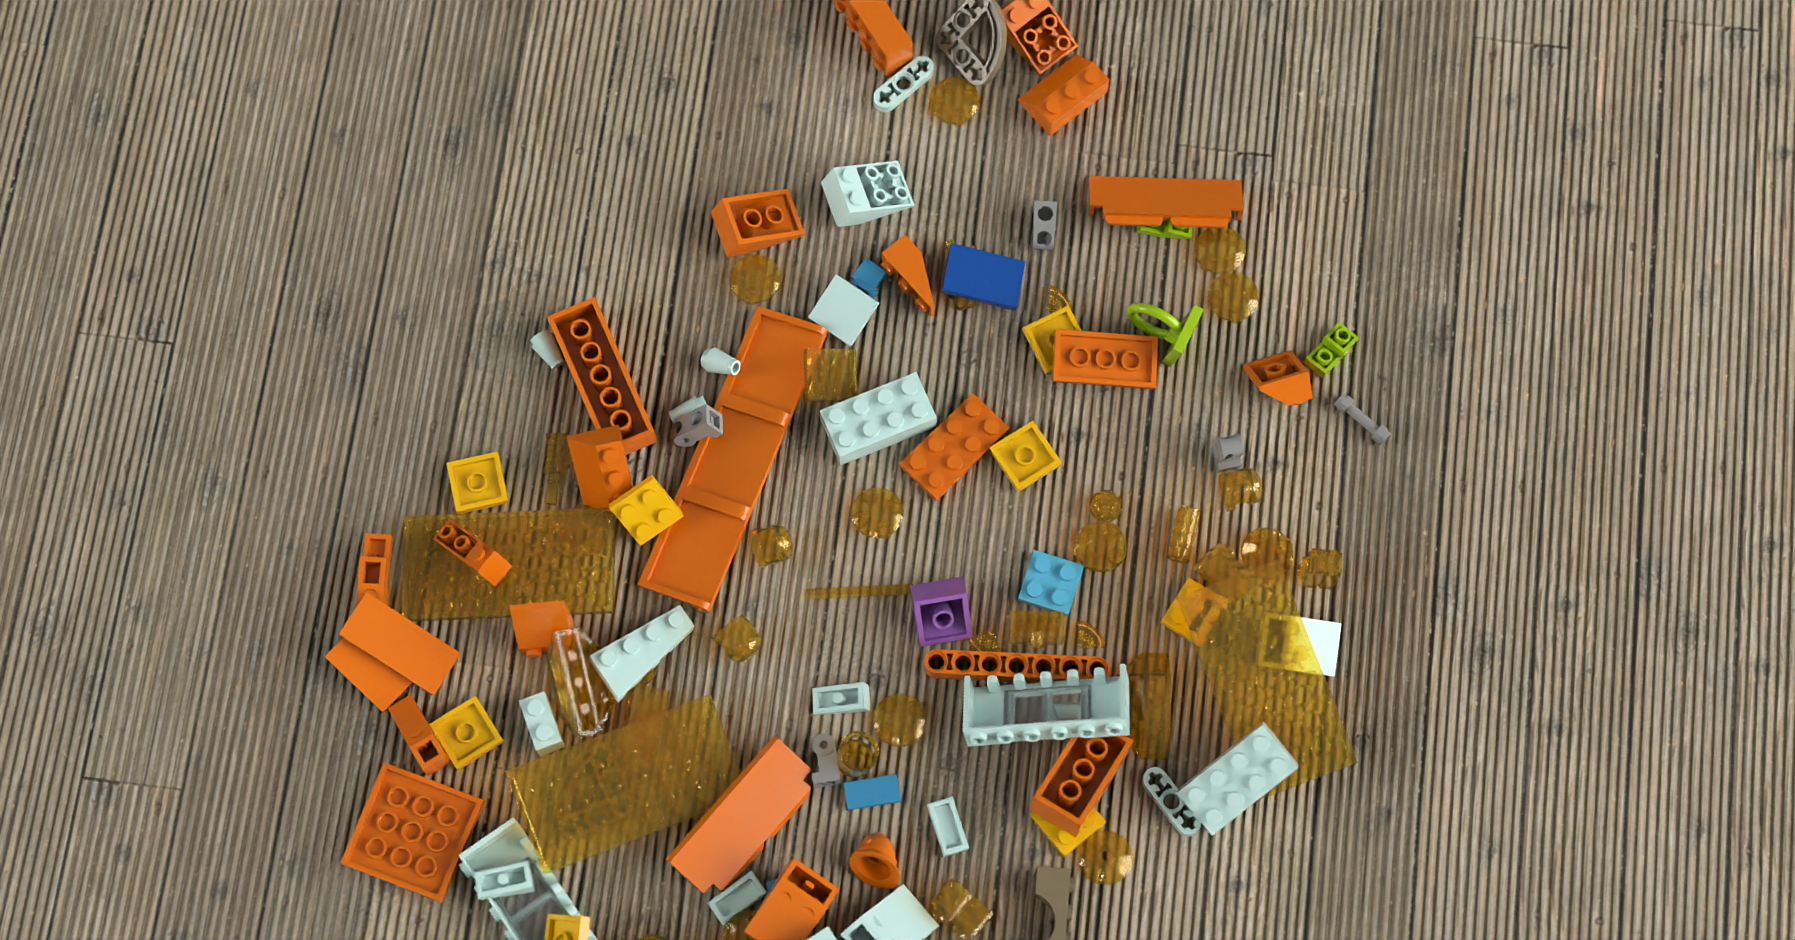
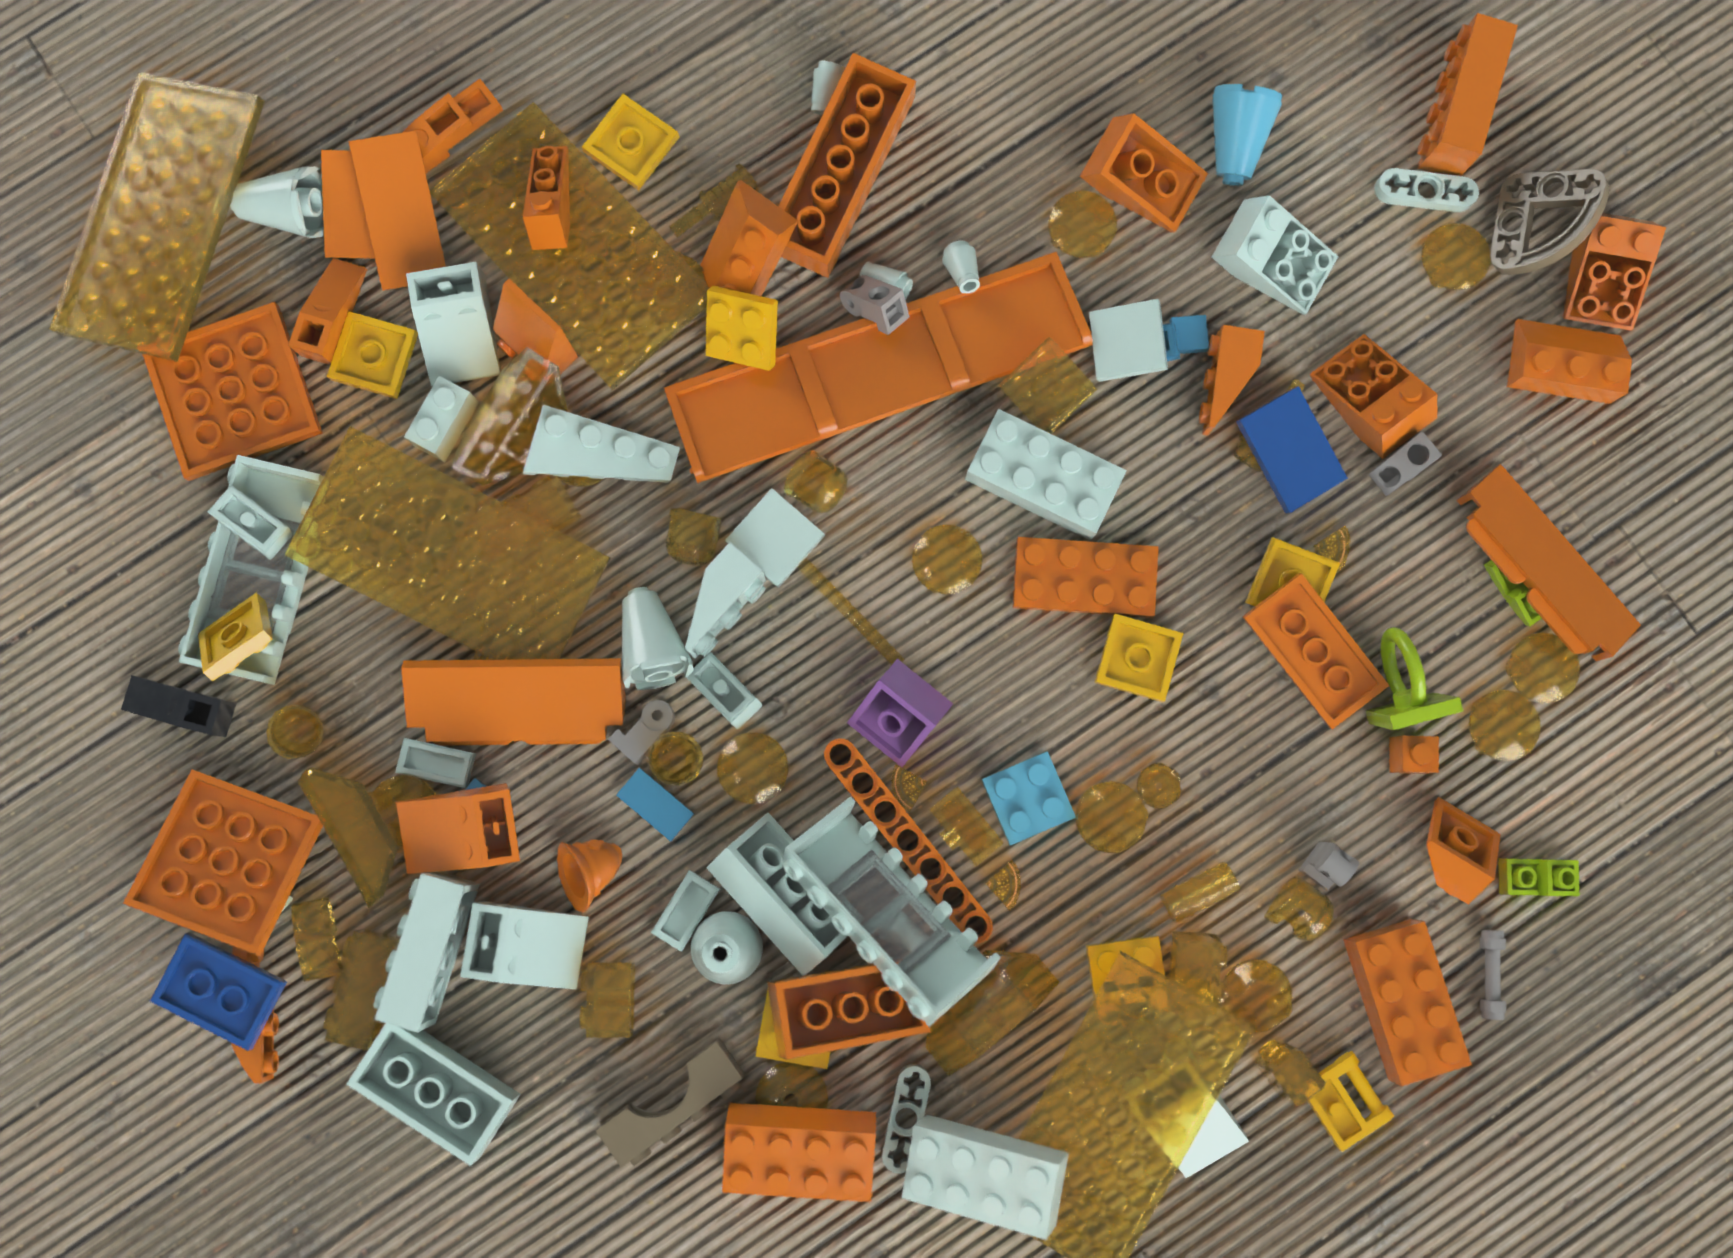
camera: 45 degrees right, 10 degrees up
(271, 786) = (157, 216): none -> clear yellow plate
(330, 707) = (283, 201): none -> light aqua cone
(493, 669) = (454, 322): none -> light aqua slope
(779, 713) = (650, 643): none -> light aqua cone
(780, 596) = (775, 537): none -> light aqua tile
(781, 150) = (1242, 128): none -> medium azure cone
(785, 645) = (725, 589): none -> light aqua slope
(985, 766) = (777, 904): none -> light aqua slope
(986, 830) = (740, 940): none -> light aqua cone
(993, 207) = (1376, 395): none -> orange slope
(1139, 872) = (799, 1152): none -> orange brick
(1207, 356) = (1414, 754): none -> orange brick
(1337, 475) = (1407, 1002): none -> orange brick
(1366, 563) = (1338, 1111): none -> yellow plate

